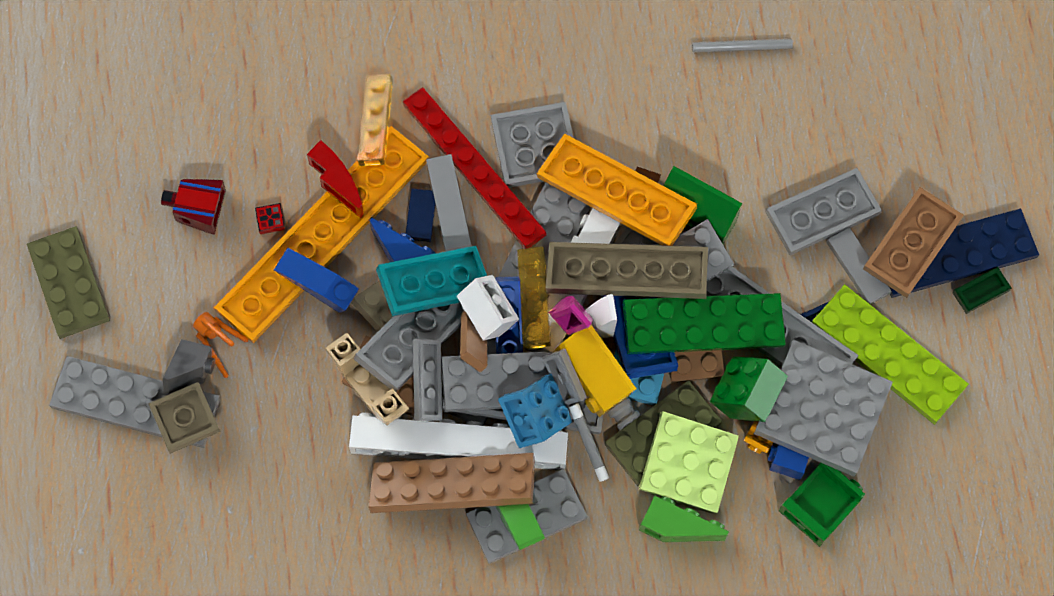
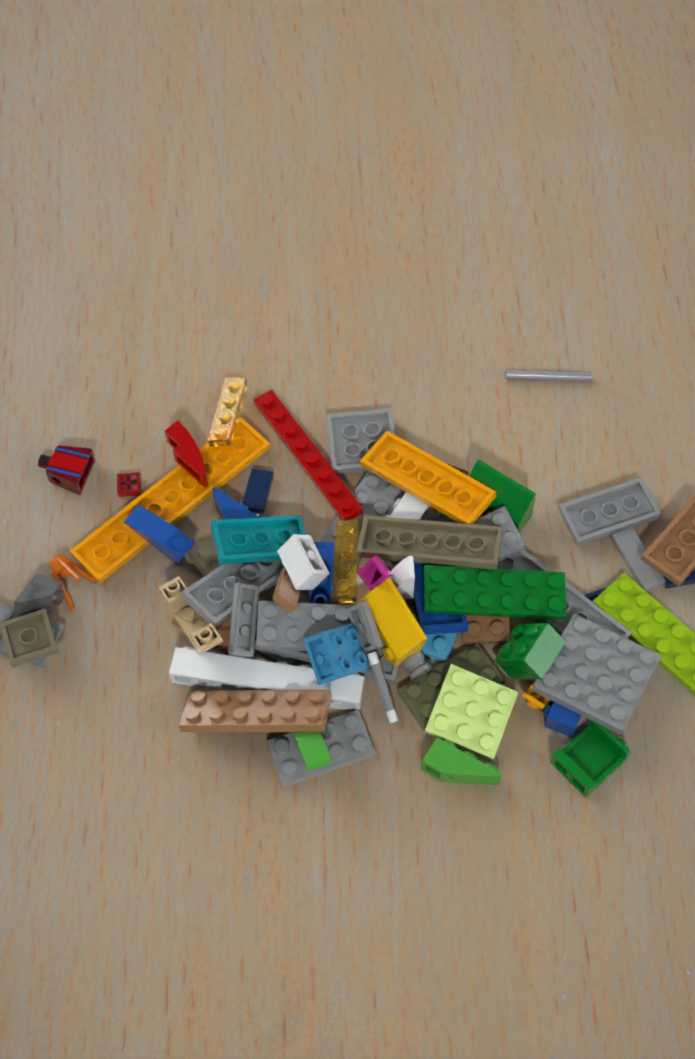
camera: 10 degrees right, 10 degrees down
(448, 202) = (281, 479): light grey tile -> none

